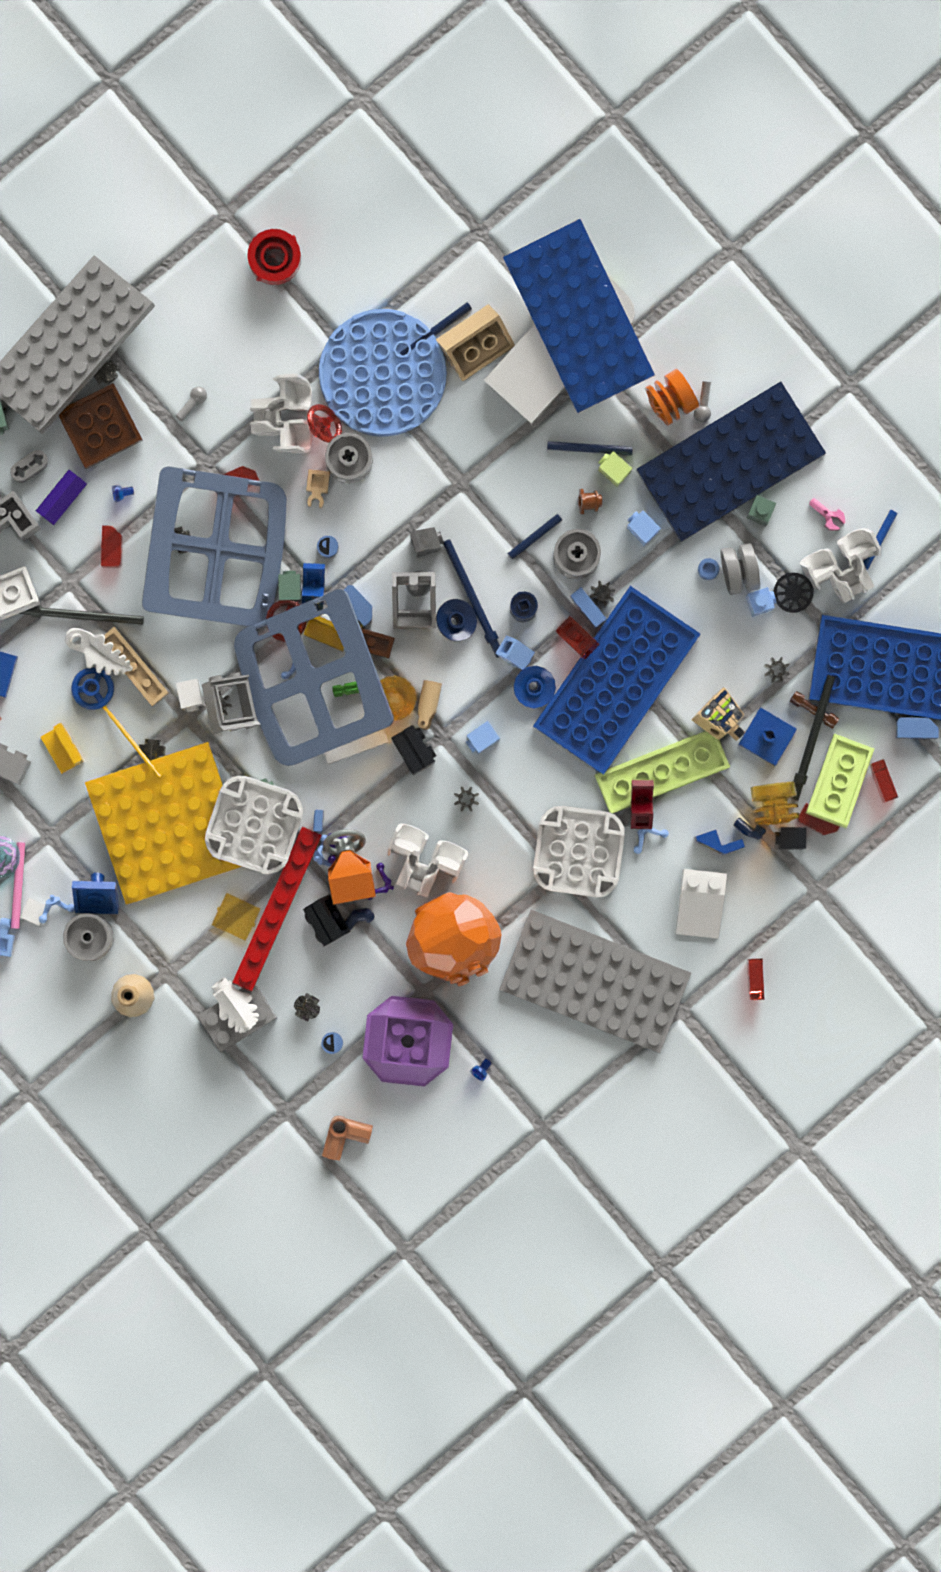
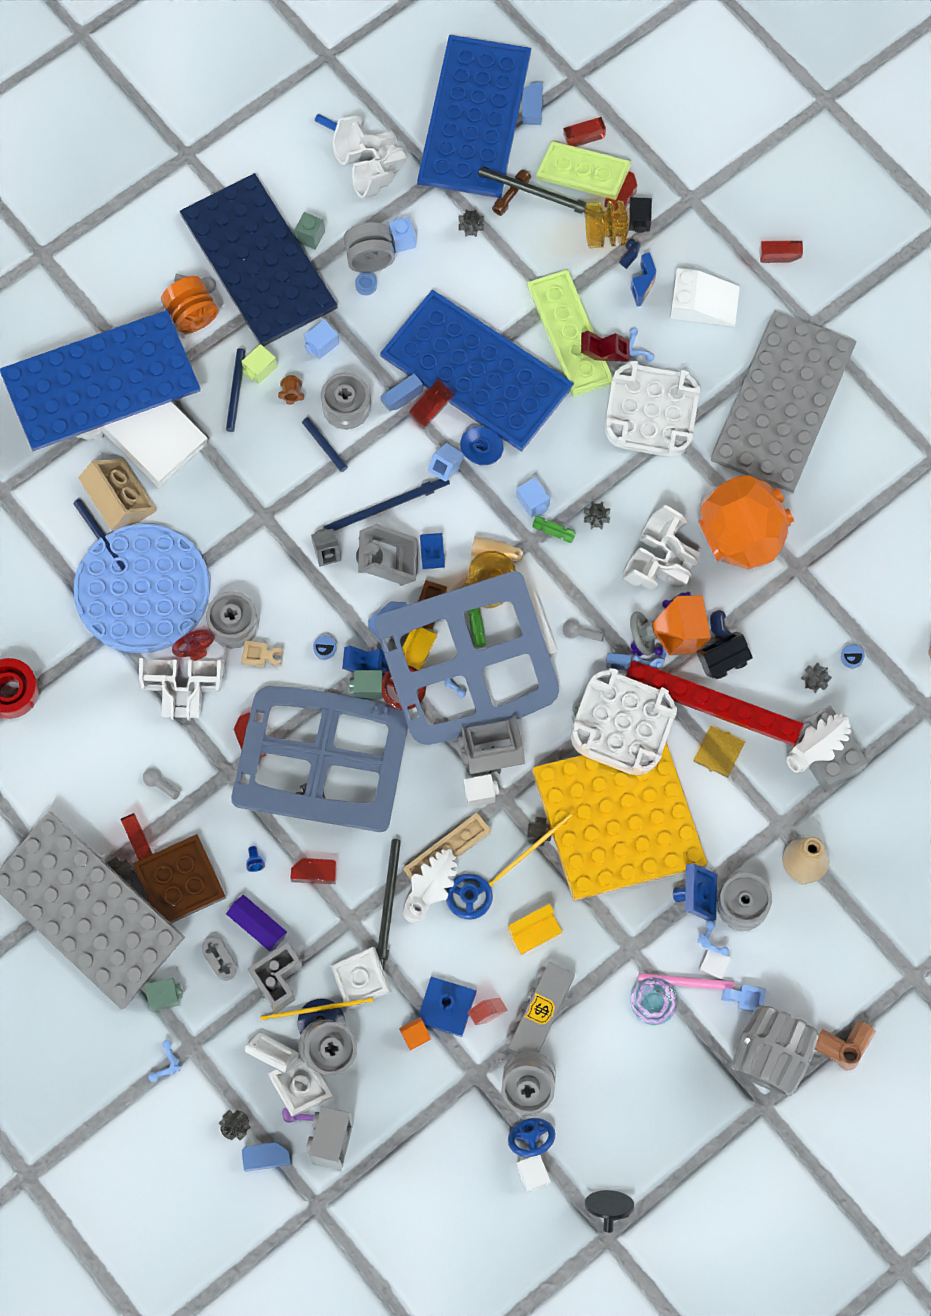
camera: 85 degrees left, 15 degrees down
(137, 385) = (136, 836): none -> clear red piece
(352, 778) = (572, 629): none -> light grey bar
(384, 1036) = (843, 599): medium lavender piece -> none
(413, 749) = (544, 565): black brick -> none
(423, 643) = (432, 551): none -> blue bracket
(453, 758) = (554, 529): none -> bright green axle
(465, 618) = (409, 518): dark blue dish -> none
(480, 1071) = (879, 511): clear blue piece -> none
(523, 606) = (398, 453): dark blue wheel -> none
(605, 588) = (384, 374): clear smoke gear -> none
(720, 716) = (516, 273): torso -> none
(767, 736) = (537, 235): blue tile -> none
(793, 592) = (393, 207): black wheel -> none
(828, 514) = (316, 165): bright pink bar -> none

